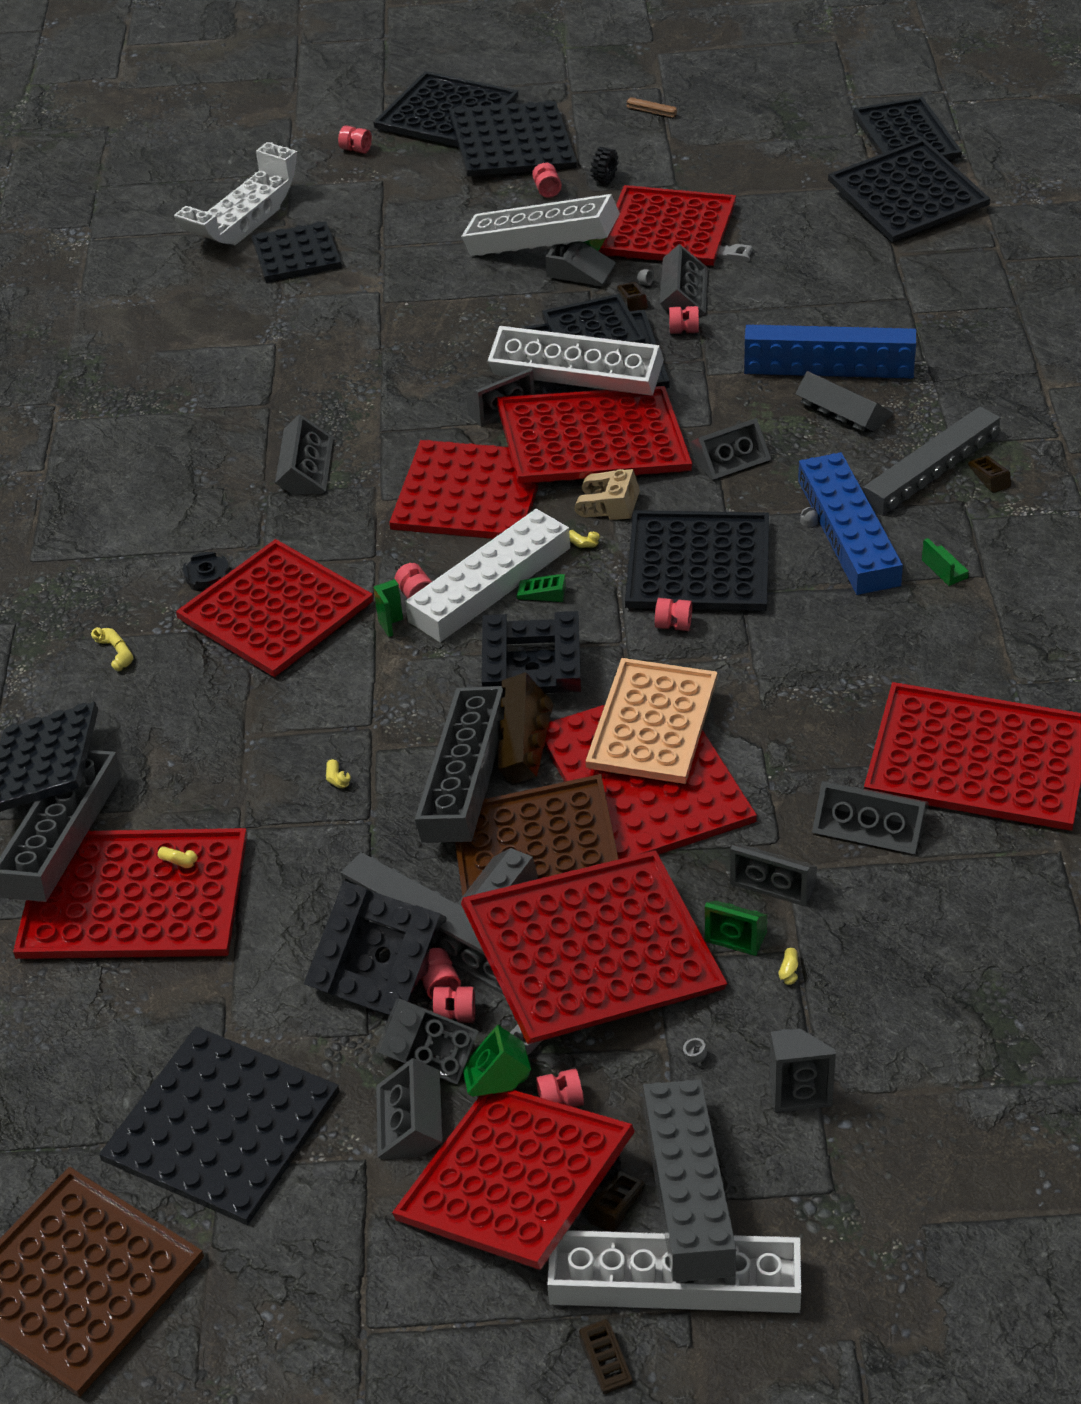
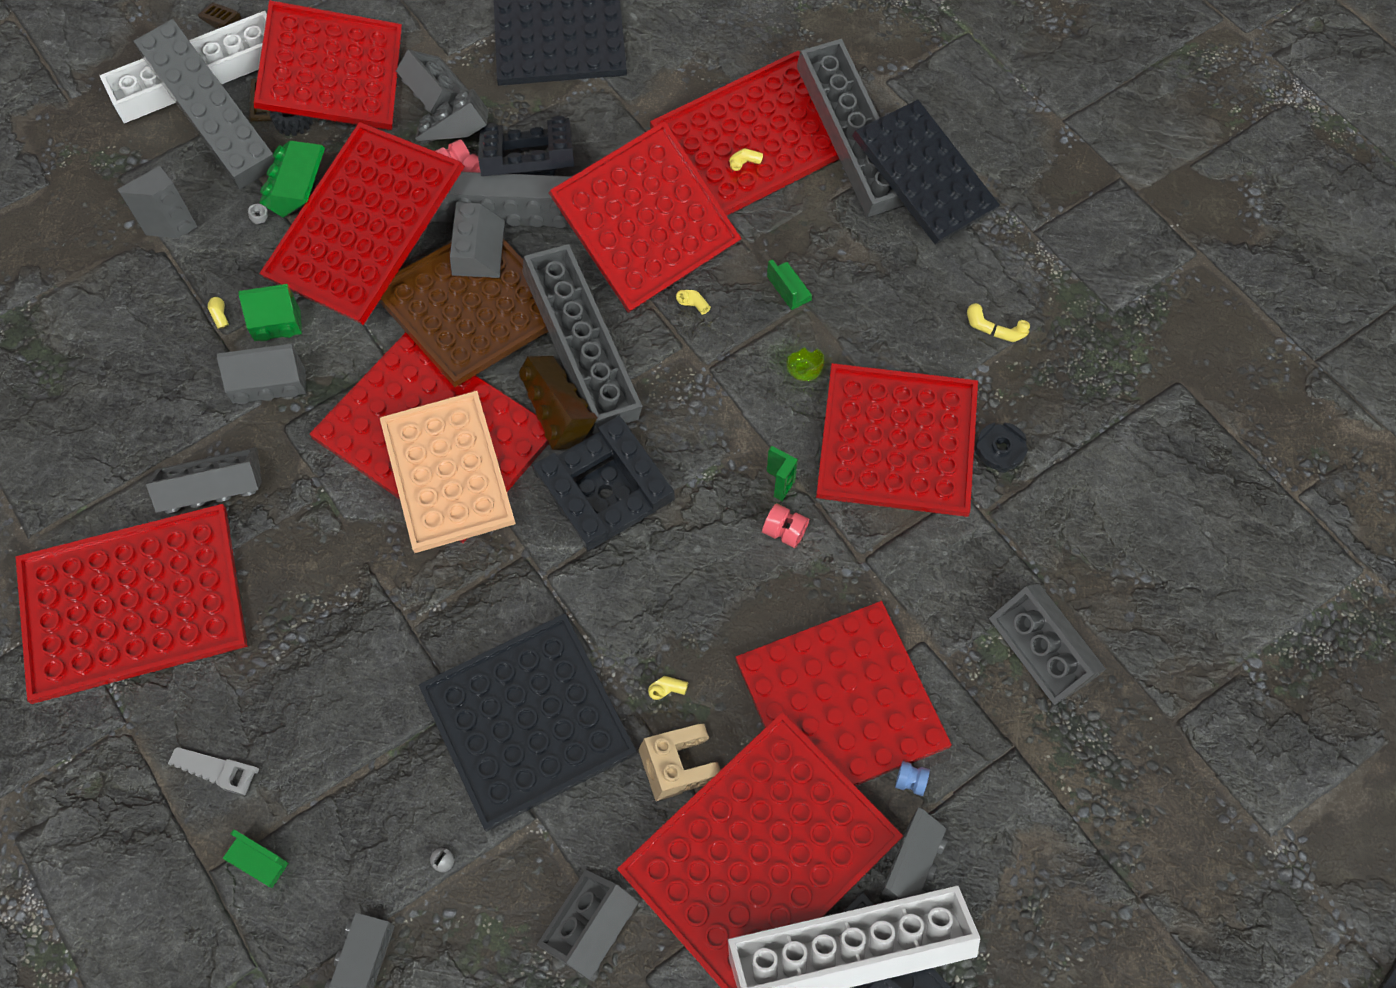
camera: 145 degrees right, 20 degrees up
(244, 750) = (788, 284): none -> green panel
(293, 677) = (805, 364): none -> clear neon green hair
(320, 829) = (645, 216): none -> red plate
(461, 432) = (912, 778): none -> medium blue wheel
(487, 575) = (723, 581): white brick -> none
(496, 1064) = (391, 119): green slope -> none
(543, 588) = (661, 587): green slope -> none
(561, 1089) = (335, 137): coral wheel -> none
(634, 1054) = (291, 176): none -> green slope
(673, 614) = (505, 619): coral wheel -> none
(850, 524) = (388, 865): blue brick -> none
(952, 624) = (214, 769): none -> light grey piece

